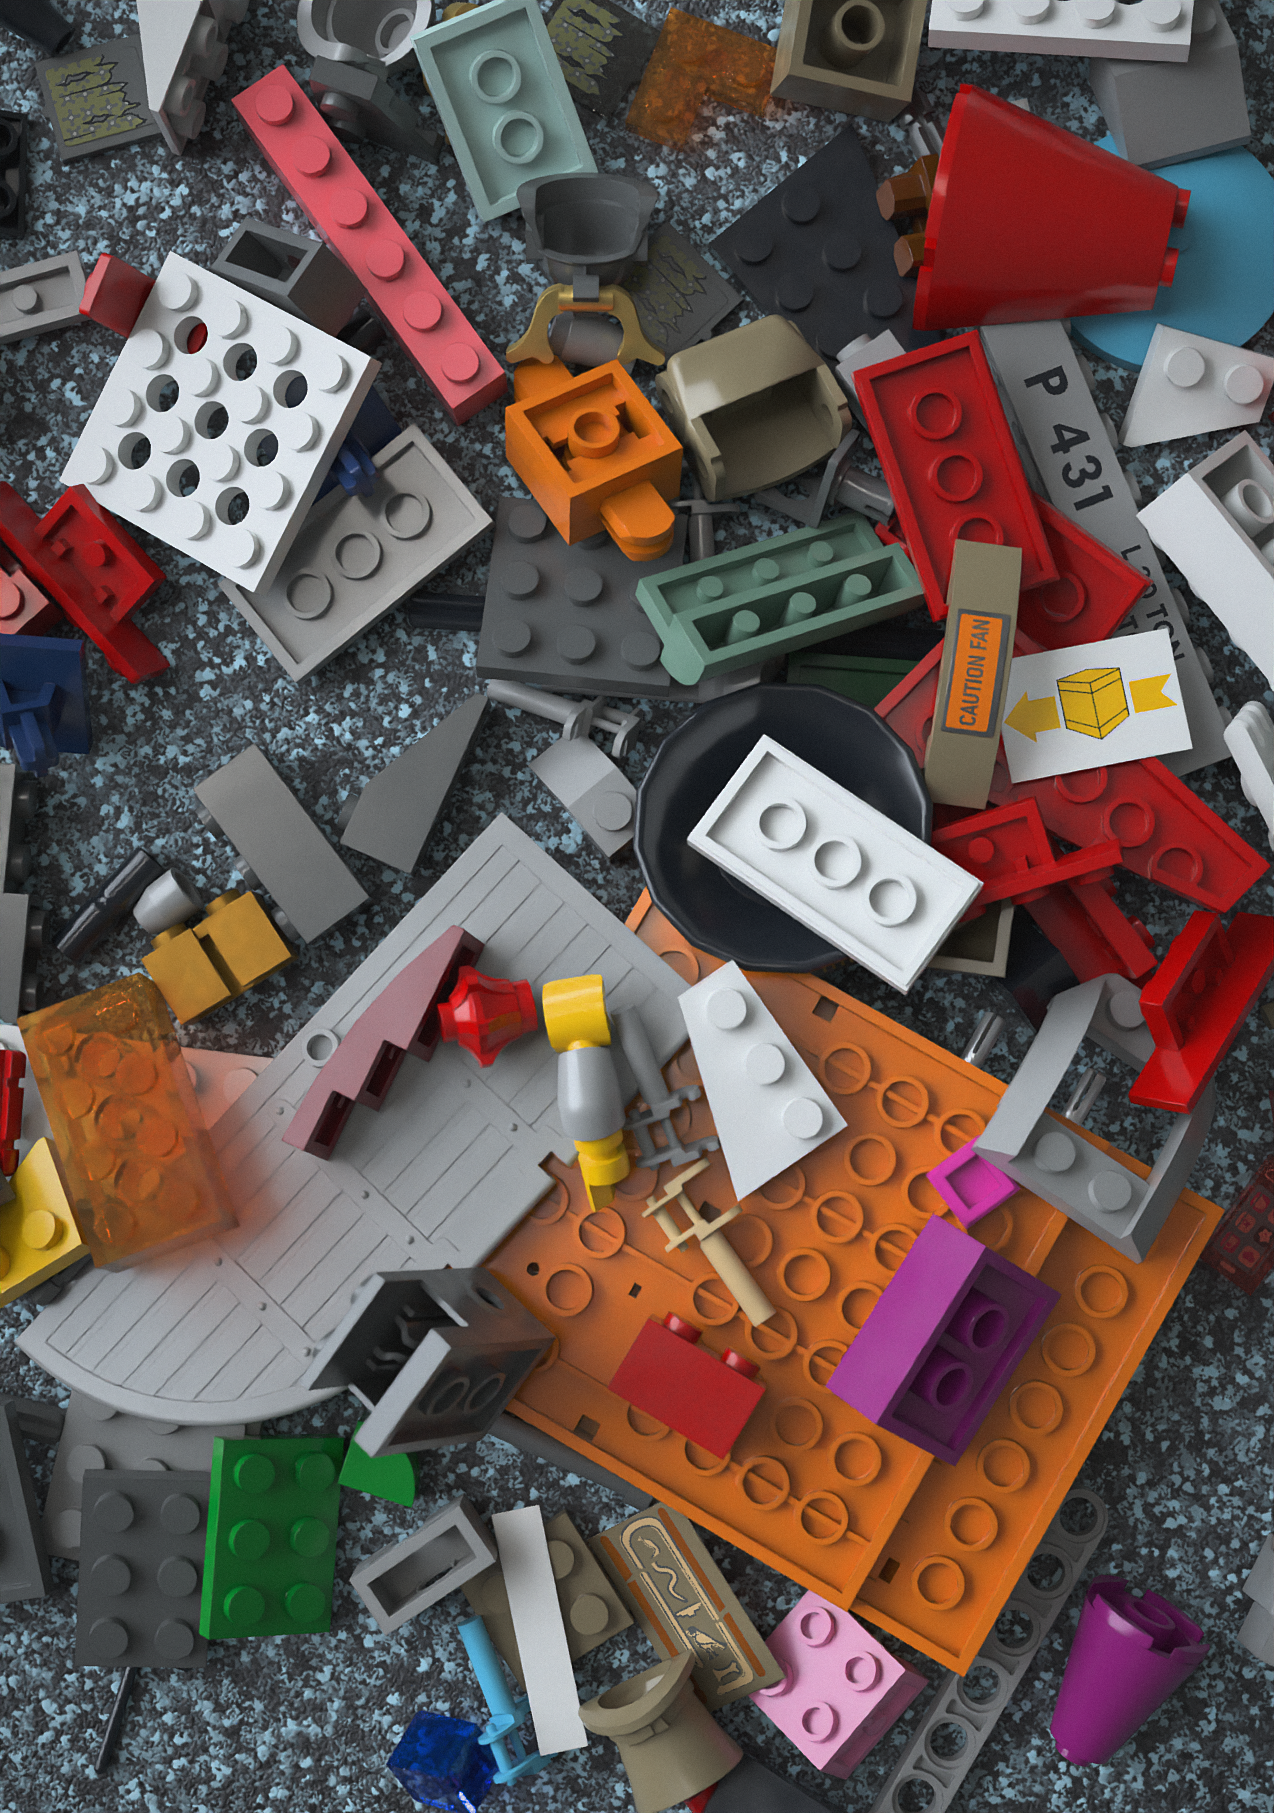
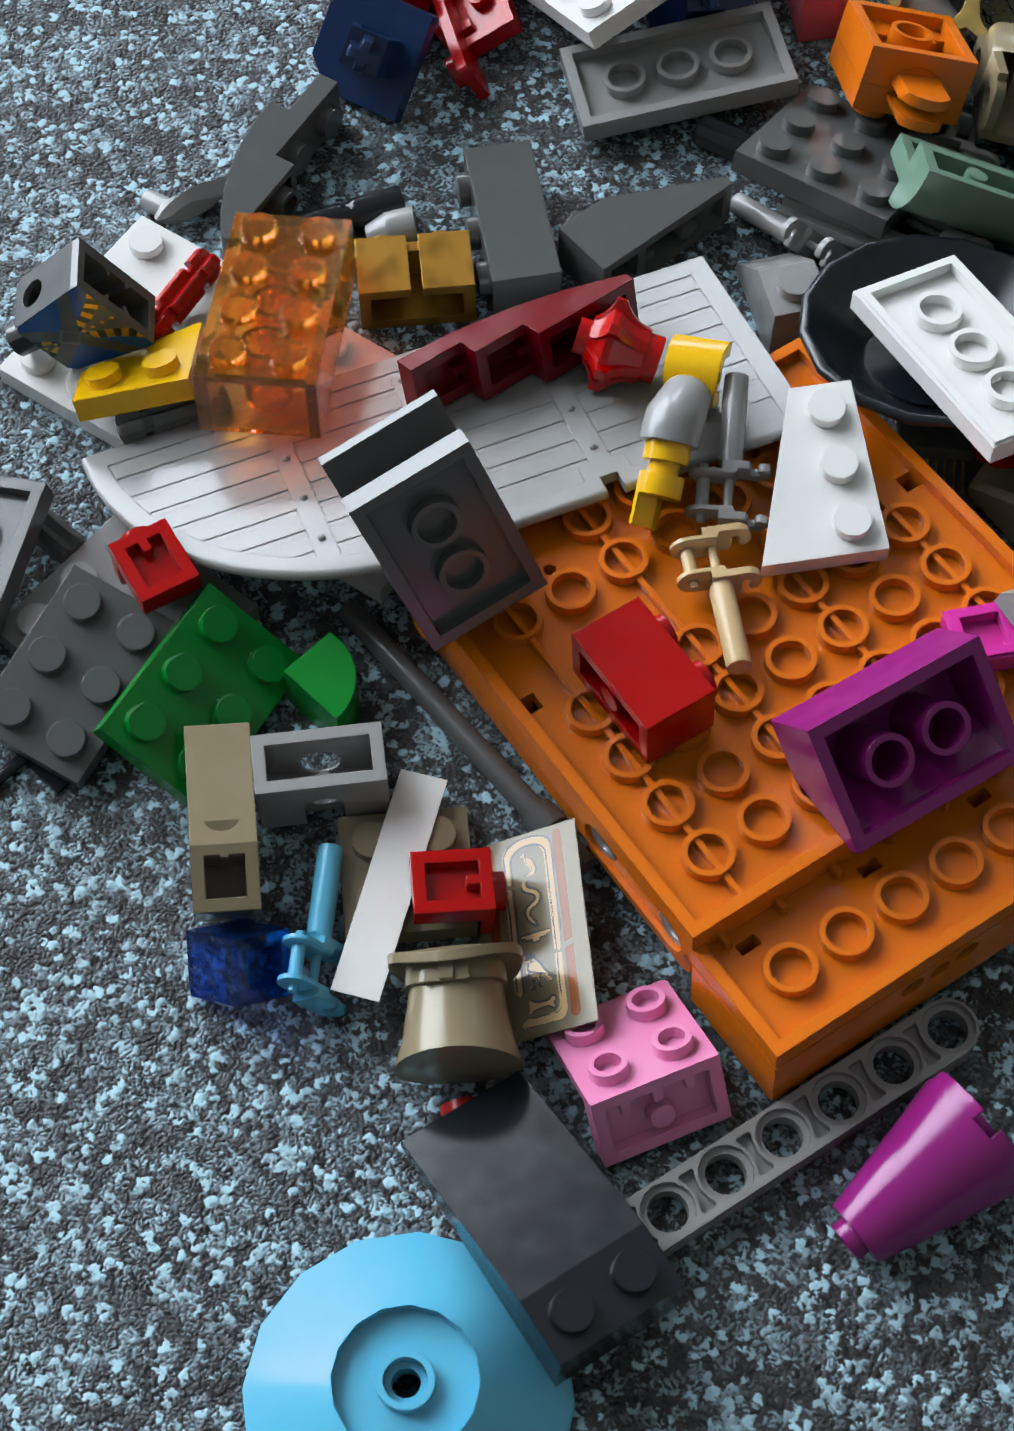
camera: 30 degrees right, 25 degrees down
(159, 1448) = (154, 565): none -> red bracket
(365, 1664) = (222, 822): none -> dark tan slope
(603, 1617) = (456, 887): none -> red bracket

